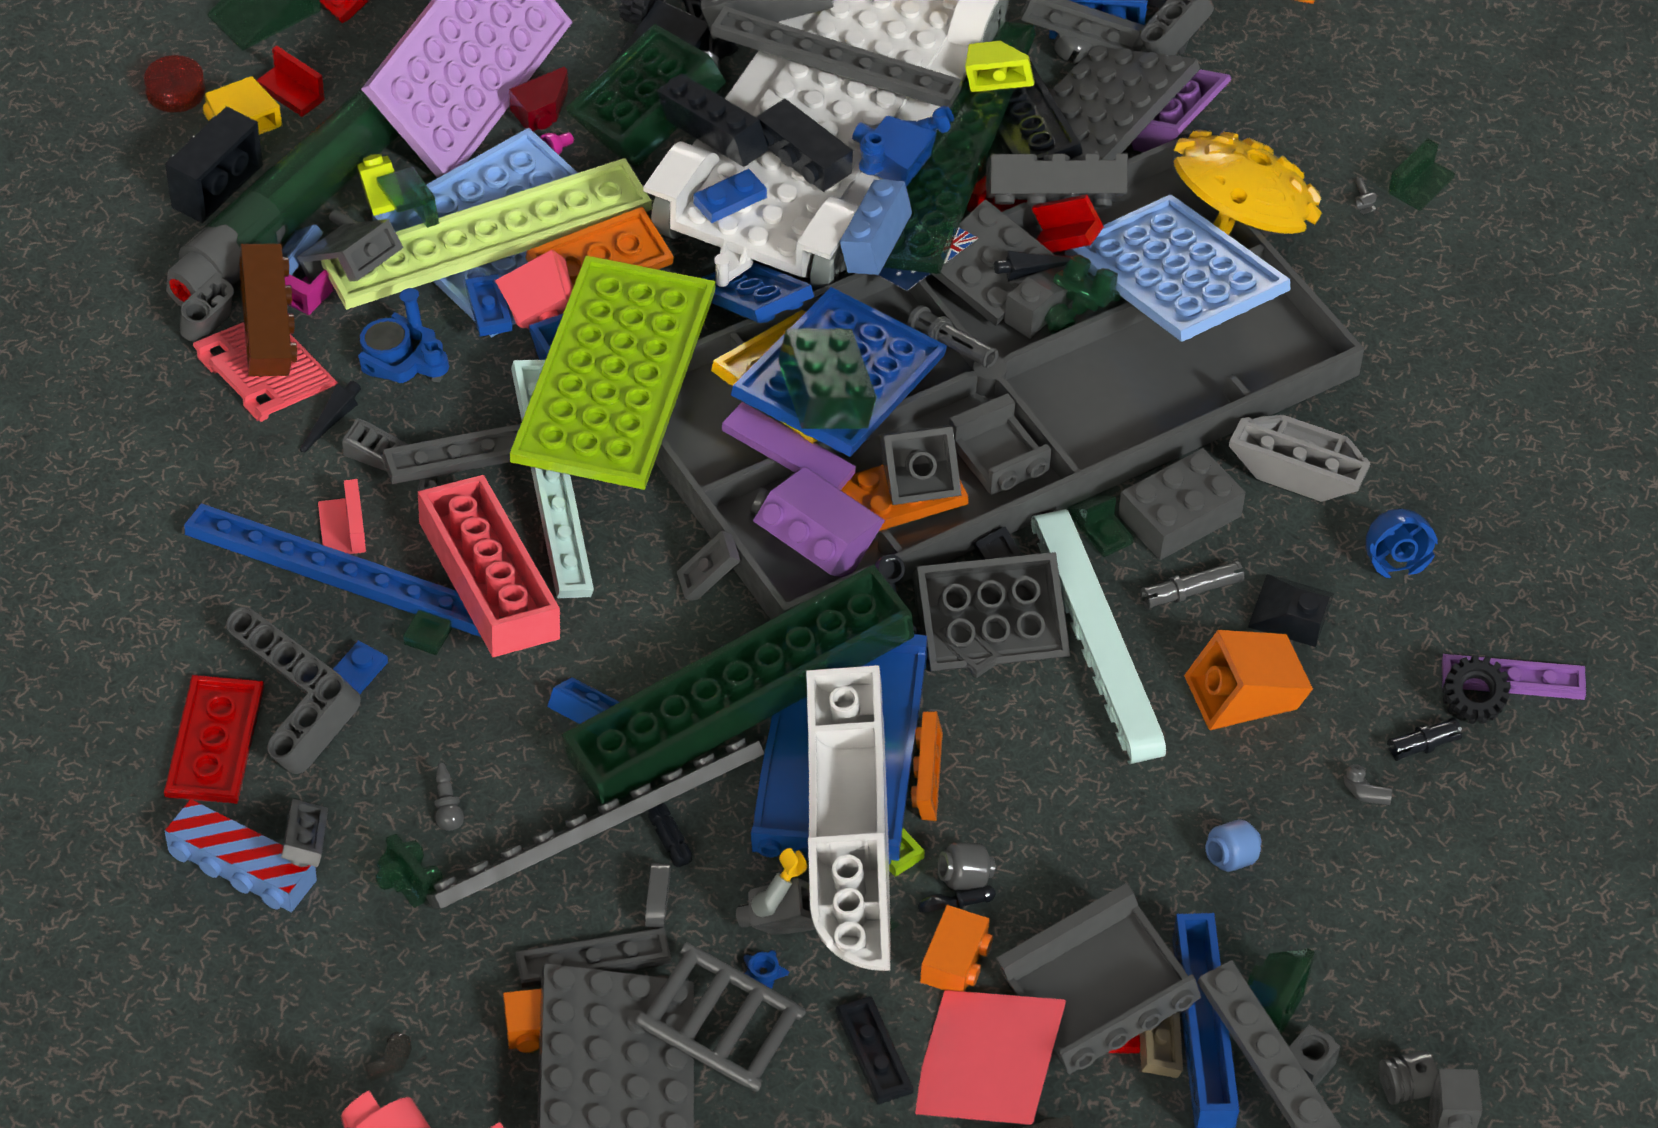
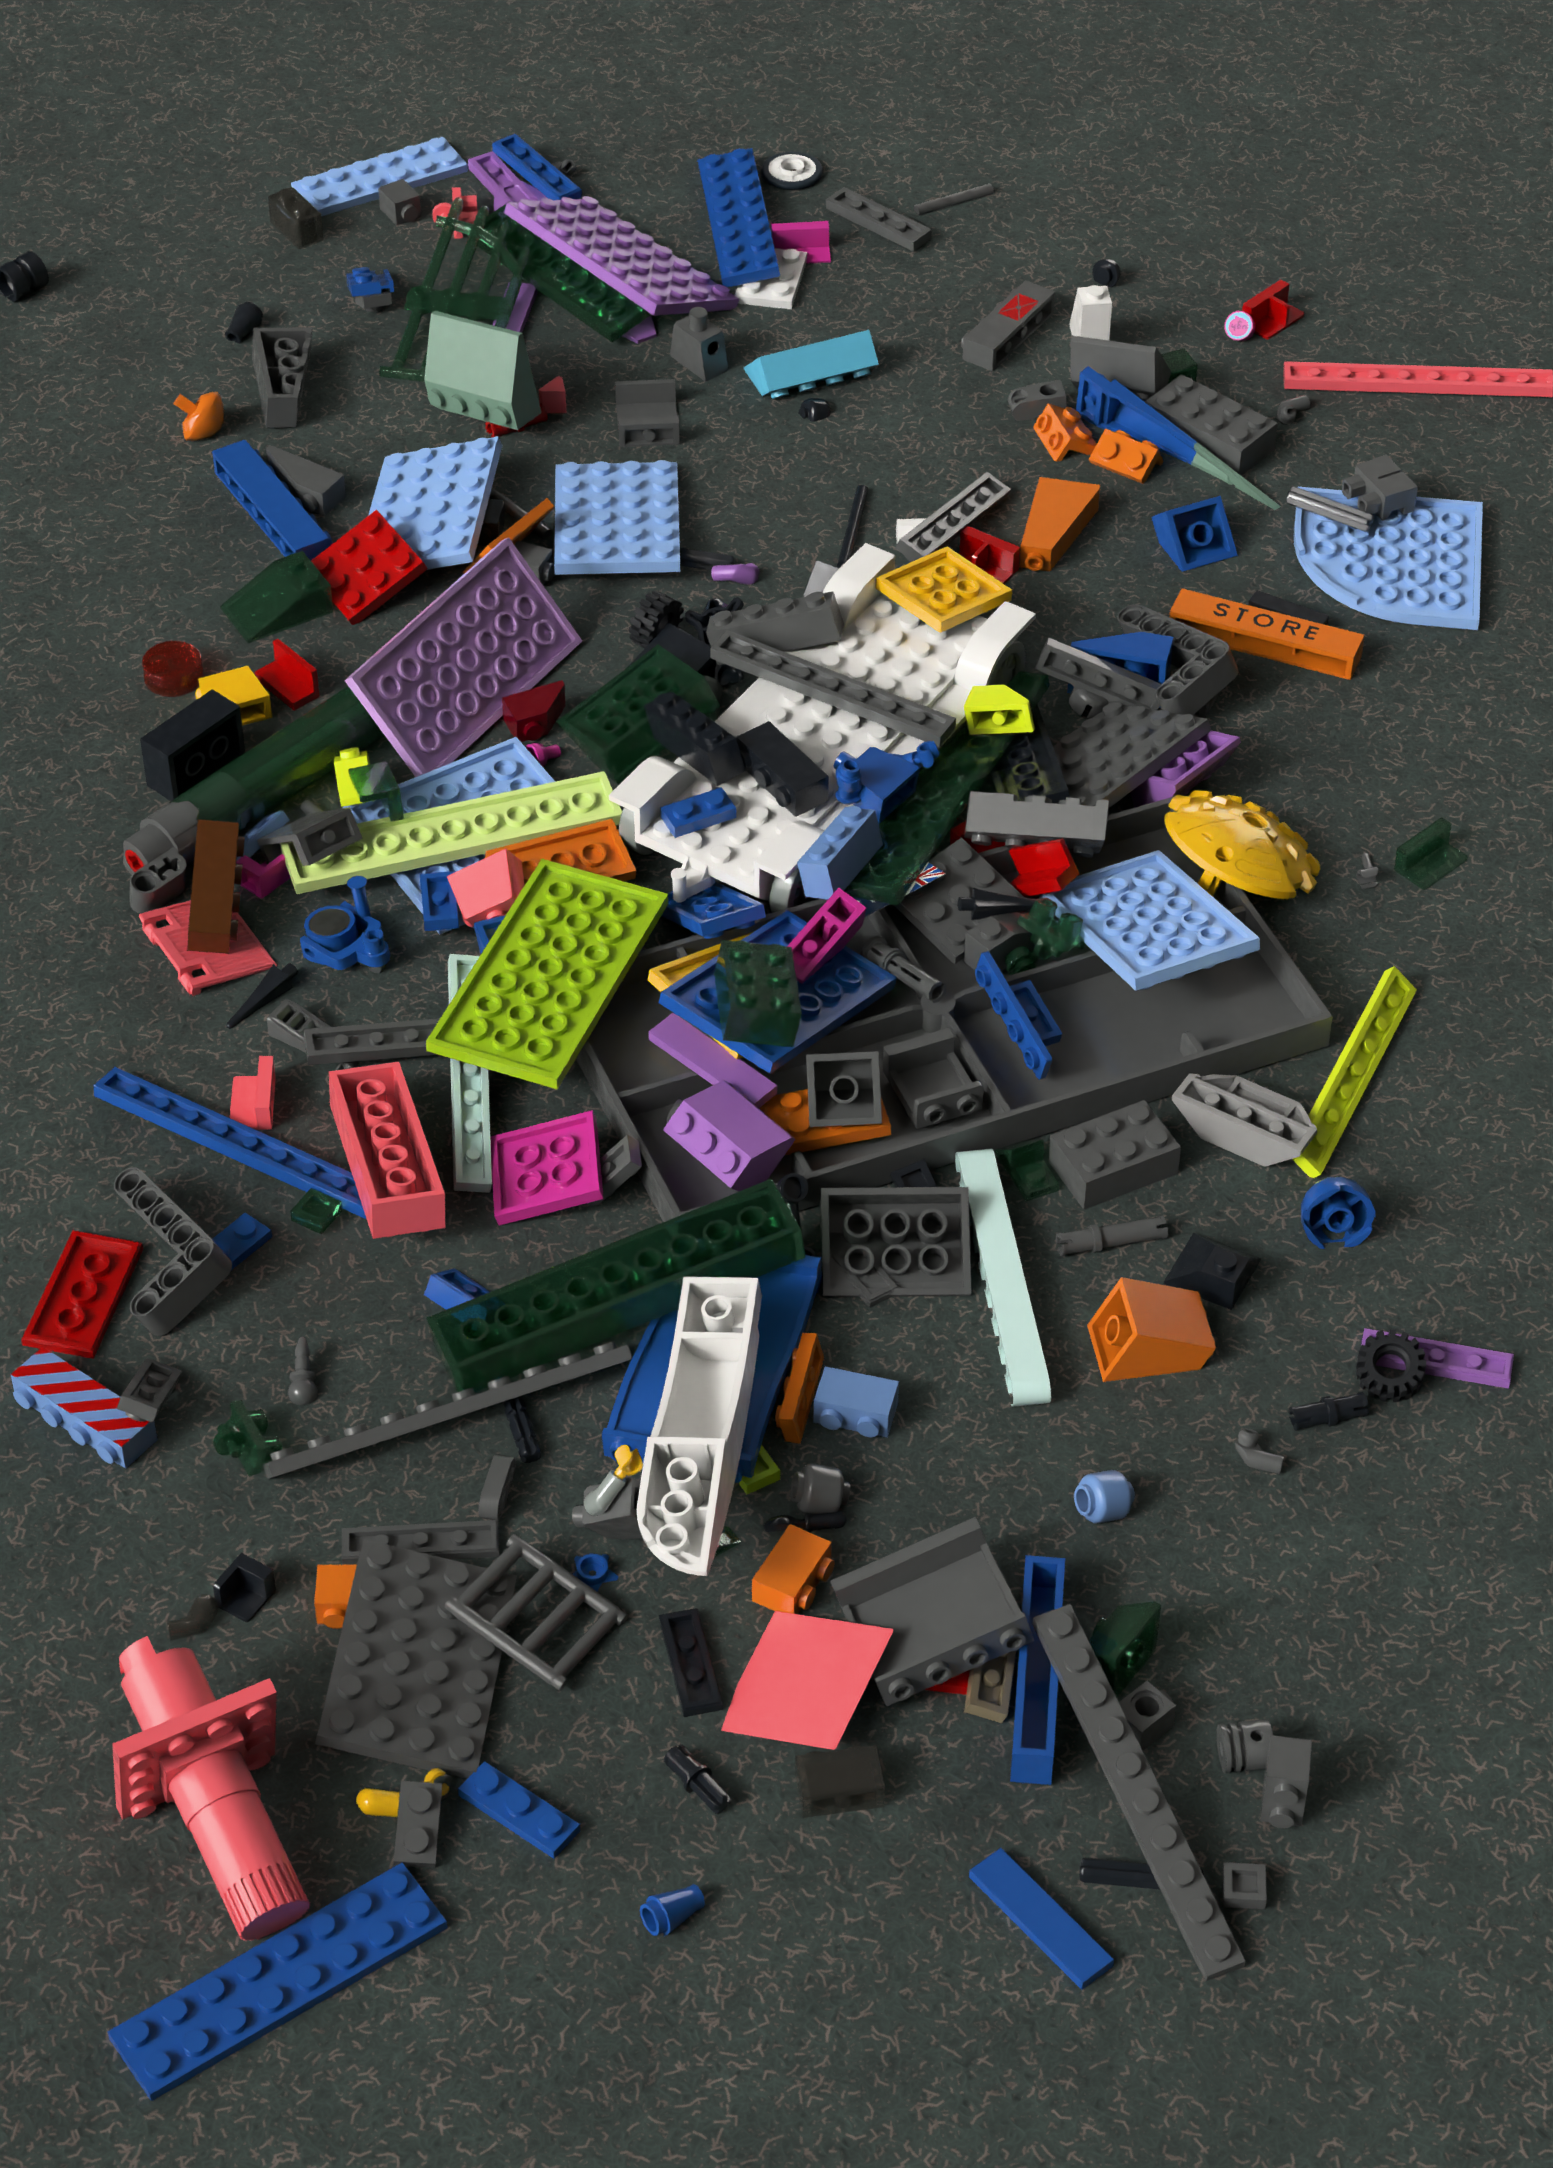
camera: 10 degrees right, 5 degrees down
(434, 1022) = (244, 1587): none -> black panel
(644, 568) = (546, 1168): none -> dark pink plate
(878, 307) = (826, 933): none -> dark pink slope
(983, 775) = (855, 1402): none -> medium blue brick
(1073, 371) = (1023, 1013): none -> blue bracket
(1391, 394) = (1355, 1068): none -> neon yellow plate

